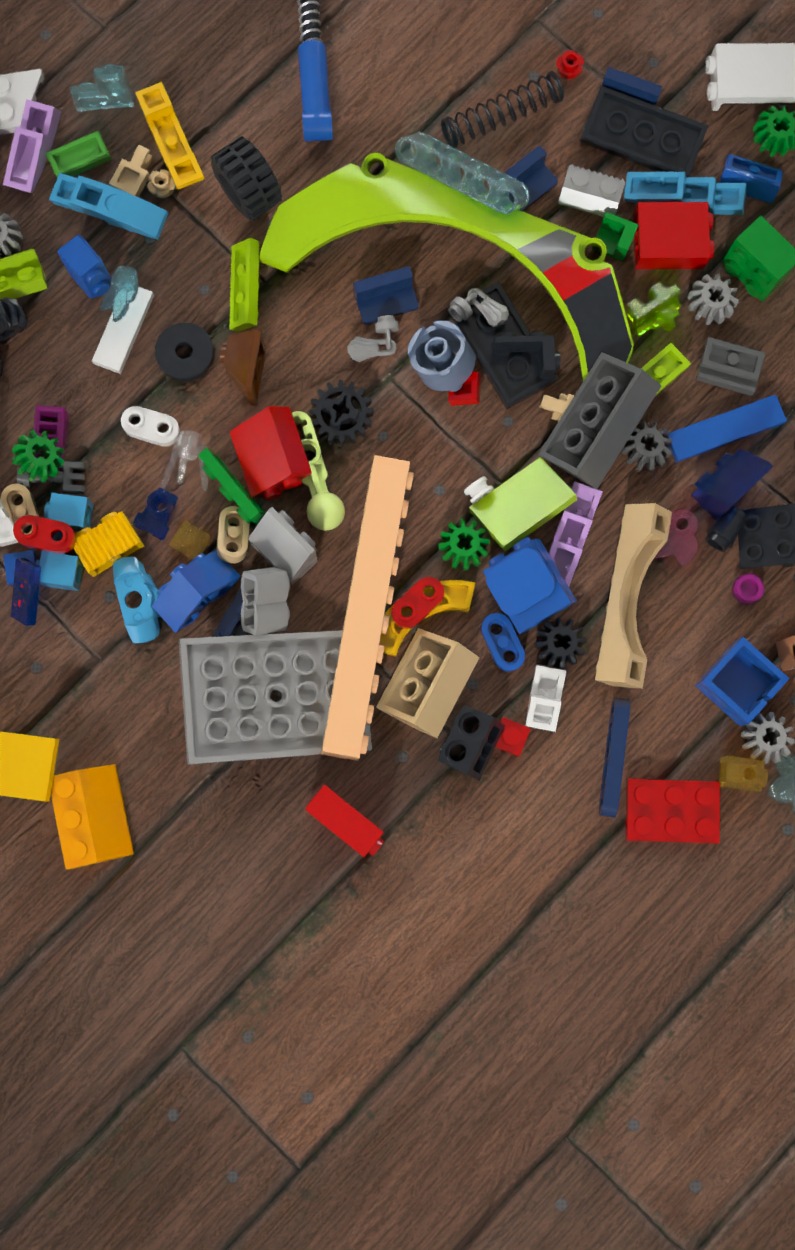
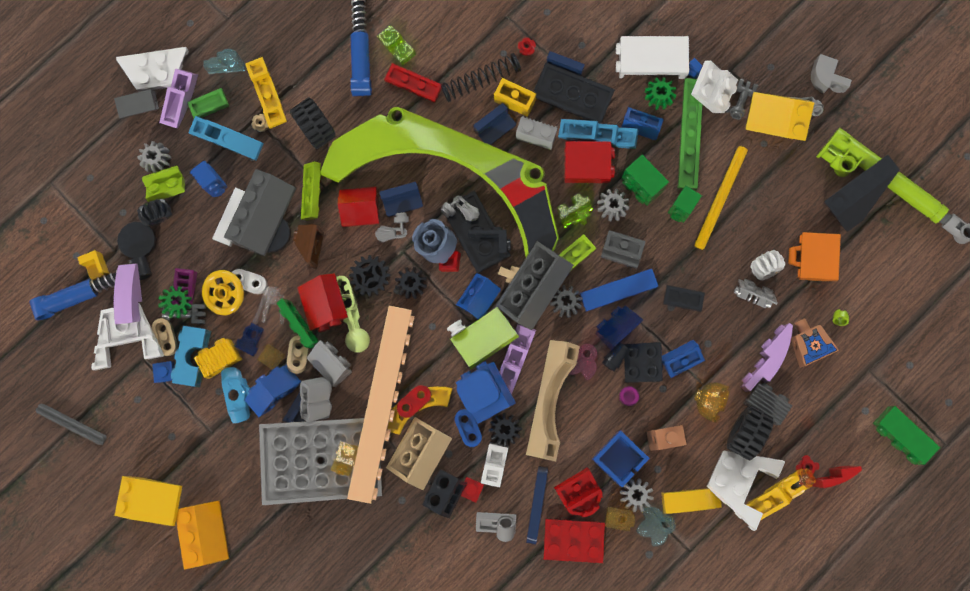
camera: 15 degrees right, 0 degrees up
(25, 591) = (165, 389): clear blue tile -> none
(43, 534) = (176, 353): red plate -> none
(92, 457) = (210, 301): none -> yellow plate
(121, 292) = (231, 195): clear light blue plate -> none
(131, 175) = (240, 118): tan plate -> none
(166, 318) = (260, 212): none -> dark grey slope
(314, 691) = (344, 459): none -> clear yellow bracket
(319, 309) = (358, 206): none -> red slope
(345, 822) = (361, 543): red brick -> none
(367, 63) = (396, 45): none -> clear neon green slope
(393, 118) = (413, 82): none -> red tile
(405, 411) = (416, 285): none -> black gear
(452, 541) = (438, 362): green gear -> none
(474, 172) = (452, 120): clear light blue beam -> none
(511, 441) = (478, 296): none -> blue panel
(558, 136) = (515, 97): none -> yellow brick
(559, 787) = (497, 523): none -> light grey plate
(616, 235) = (551, 162): green panel -> none
(680, 738) = (580, 494): none -> red slope

